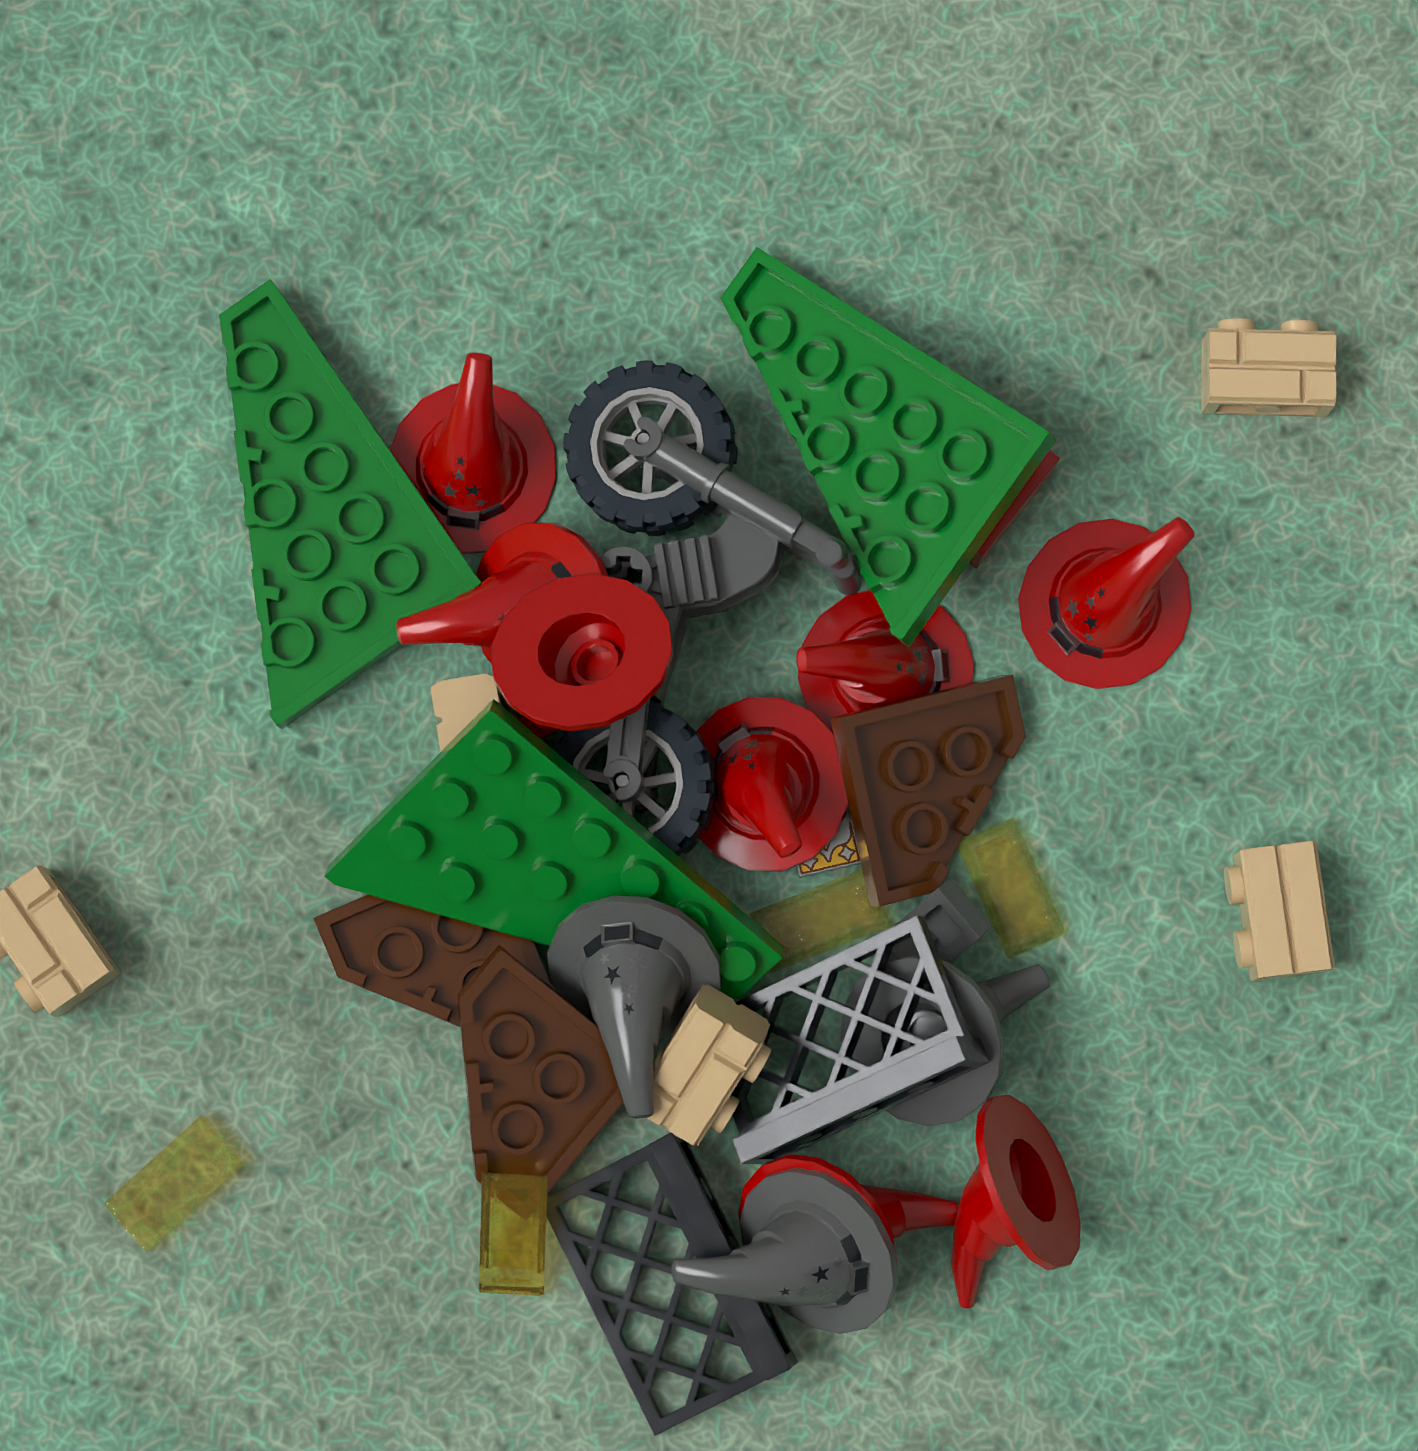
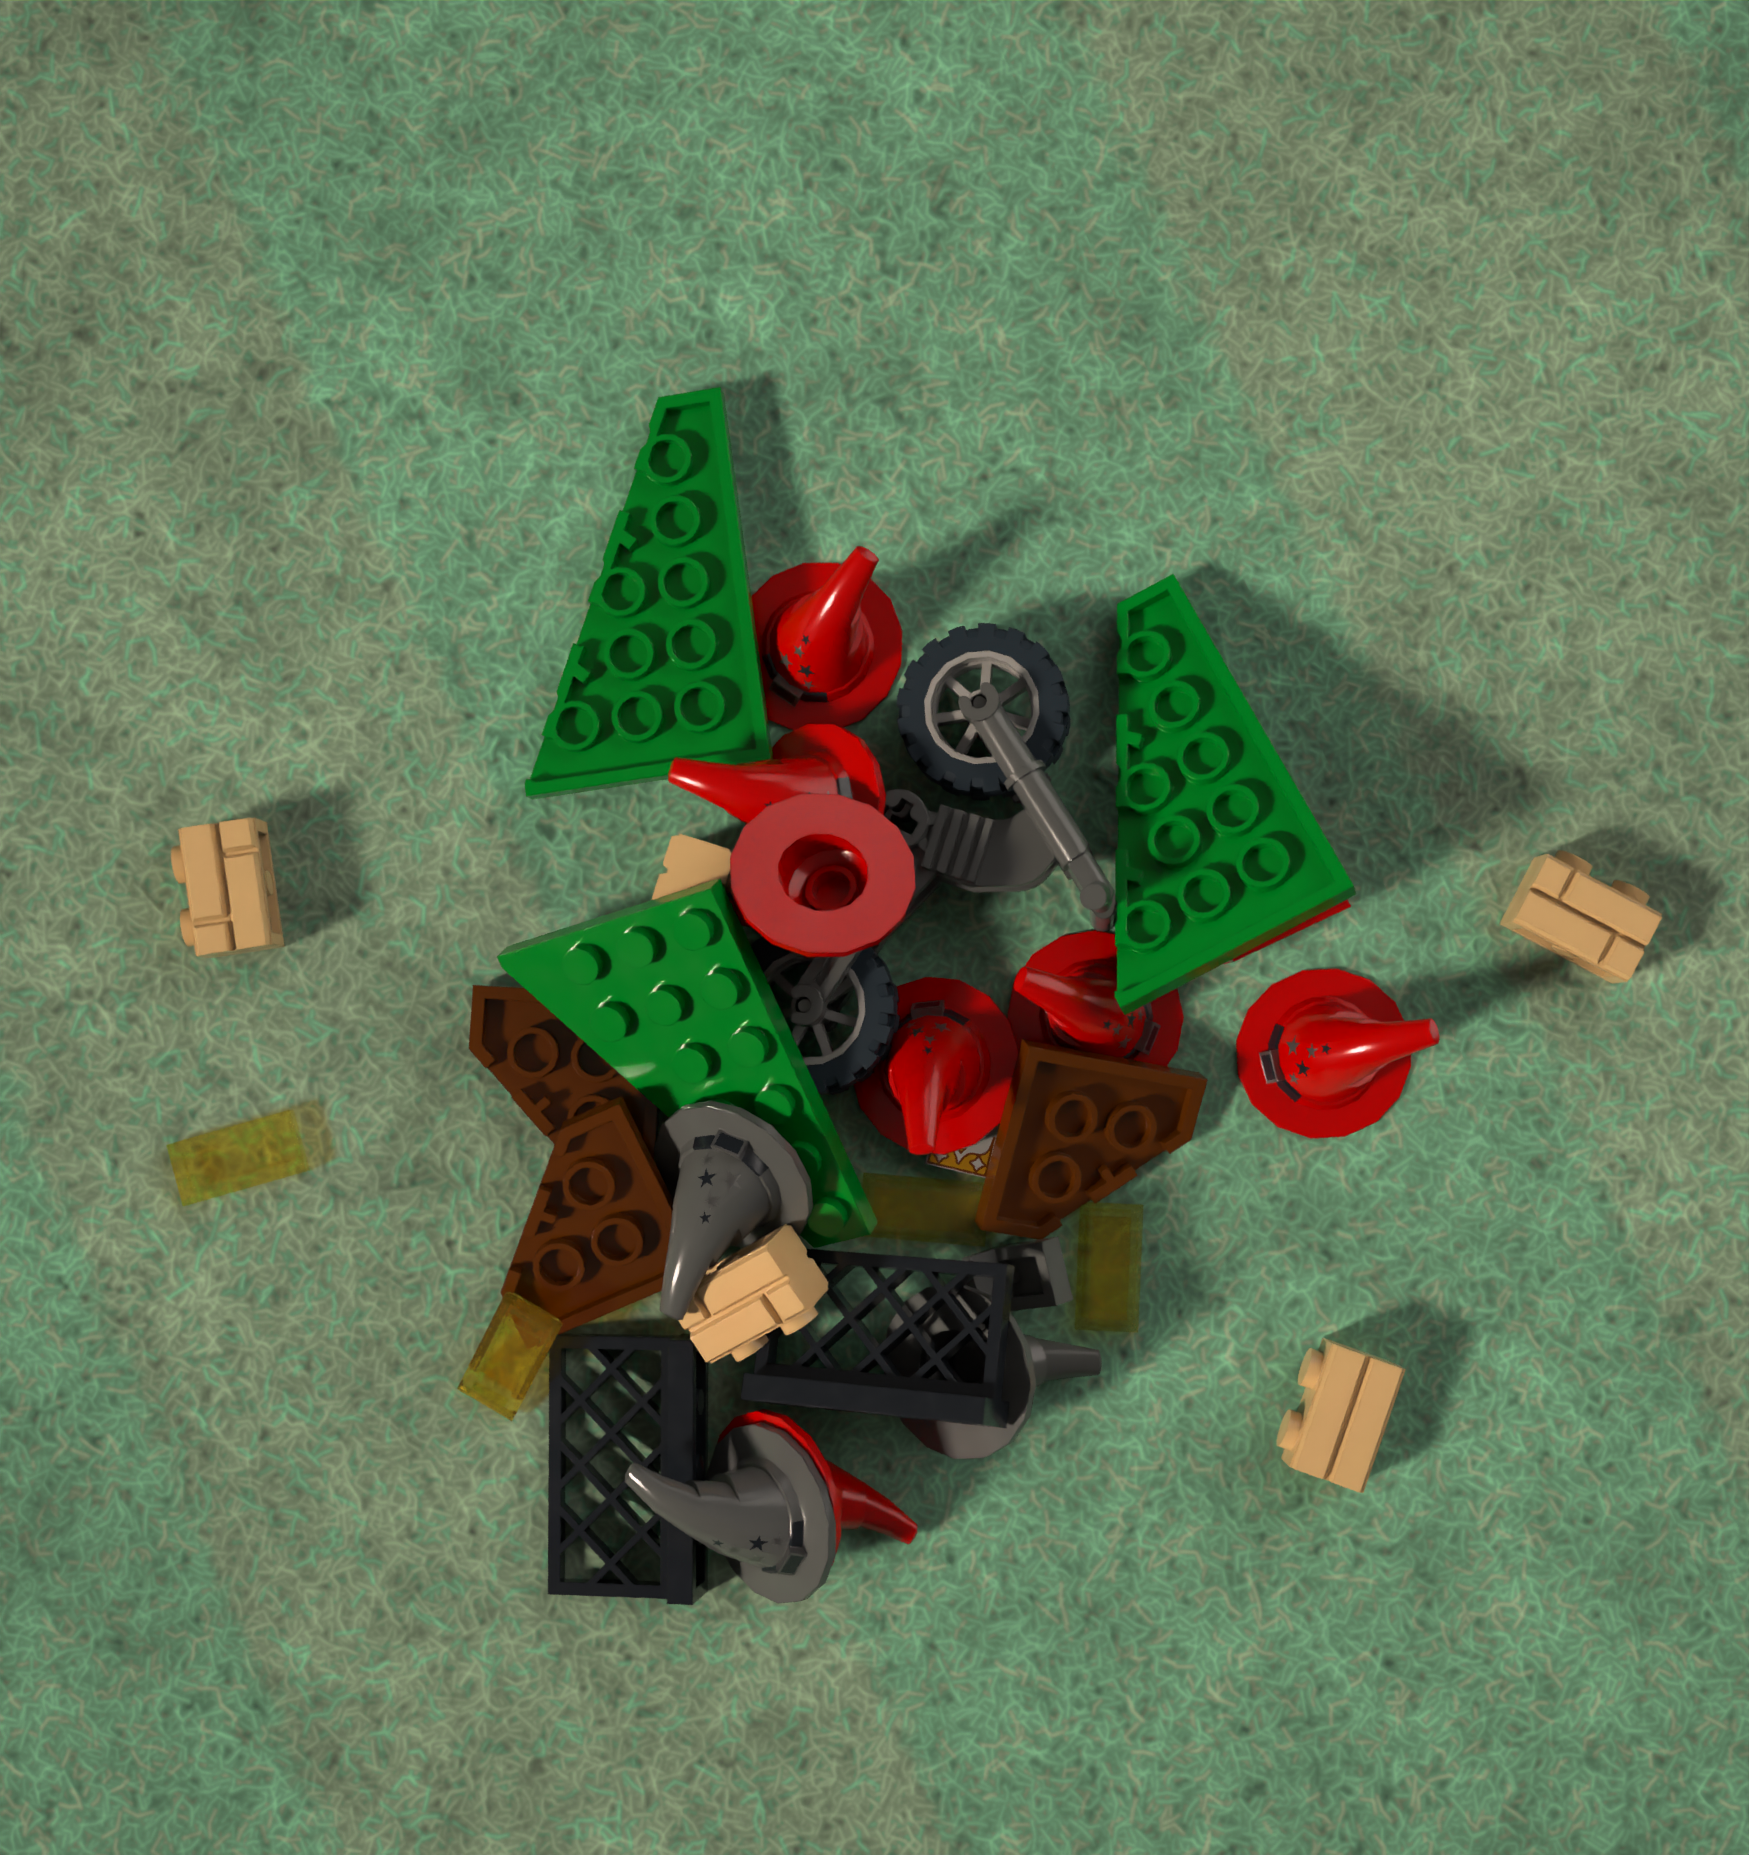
camera: 30 degrees right, 5 degrees up
(1013, 1197) = (970, 1553): red piece -> none

